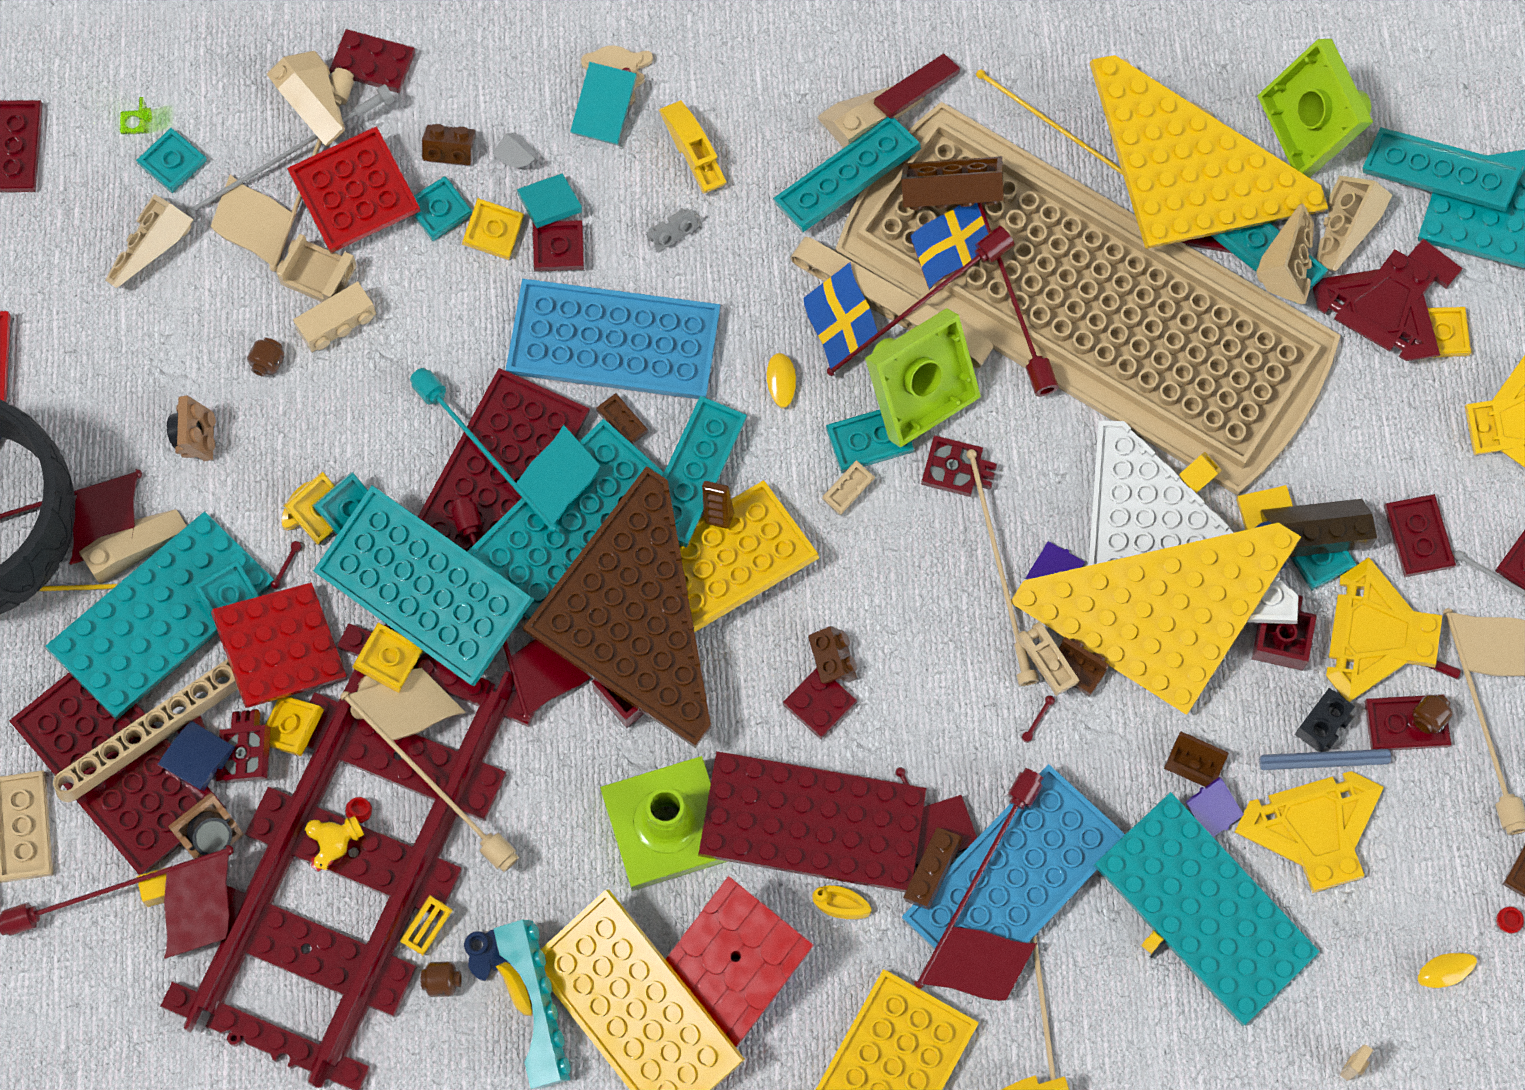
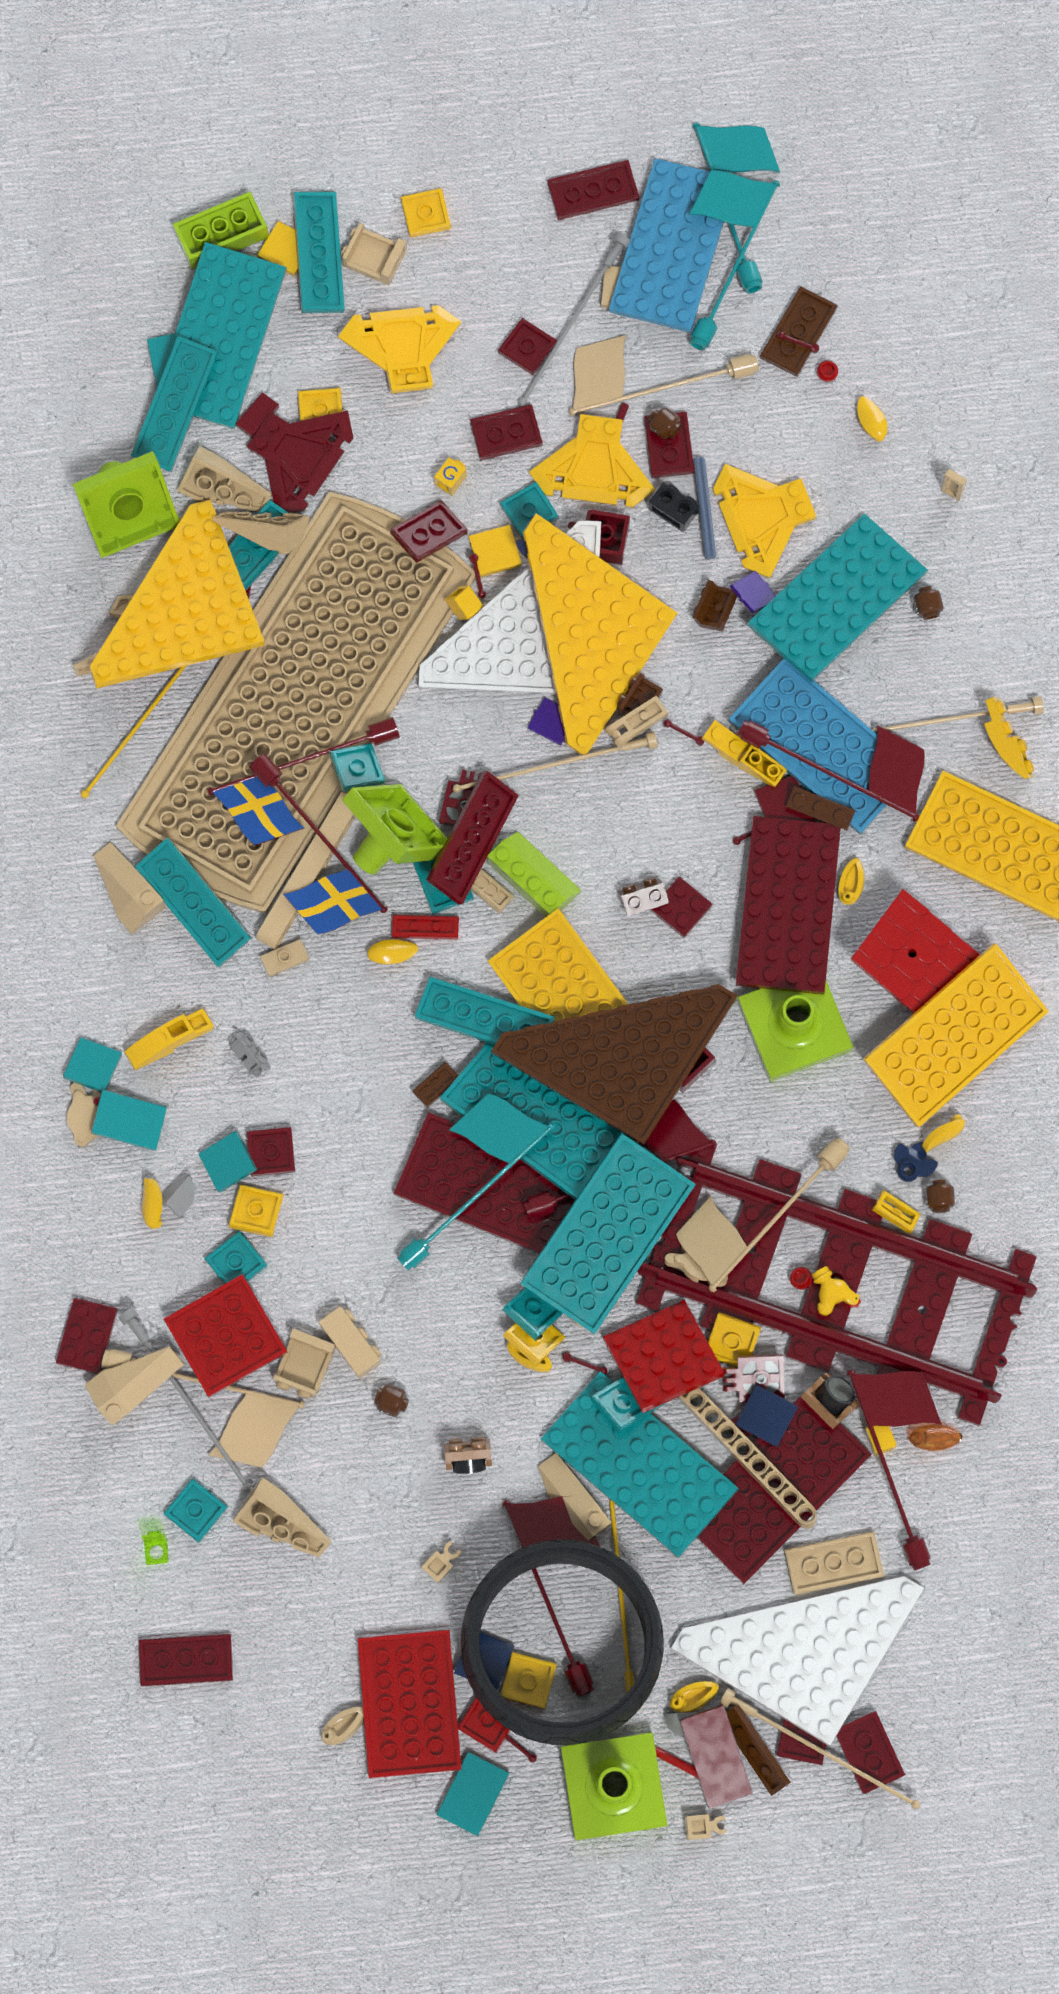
camera: 90 degrees left, 5 degrees up
(78, 399) = (439, 1565): none -> tan plate
(151, 951) = (935, 1437): none -> clear orange arm
(387, 657) = (673, 1258): yellow tile -> none
(448, 144) = (171, 1257): reddish brown bracket -> none
(508, 123) = (152, 1204): none -> yellow arm
(546, 1058) = (912, 1131): arch -> none
(613, 339) = (359, 1097): dark azure plate -> none
(669, 72) = (92, 1065): none -> teal tile
(717, 504) = (520, 992): reddish brown slope -> none
(780, 269) = (284, 958): none -> tan plate
(809, 418) = (425, 927): none -> red tile
(865, 536) = (532, 874): none -> lime slope
(908, 464) = (472, 837): none -> dark red plate
(916, 86) = (103, 846): dark red tile -> none
(952, 182) = (205, 807): reddish brown slope -> none
(994, 796) = (744, 755): none -> yellow slope
(999, 346) = (357, 767): none -> teal tile
(1153, 943) = (868, 638): yellow piece -> none
(1199, 1022) = (928, 603): none -> reddish brown head
(1256, 486) = (474, 558): none -> dark red hinge
(1290, 439) = (428, 531): none -> tile
(1326, 526) = (505, 506): dark brown slope -> none
(1361, 468) = (450, 476): none -> yellow brick

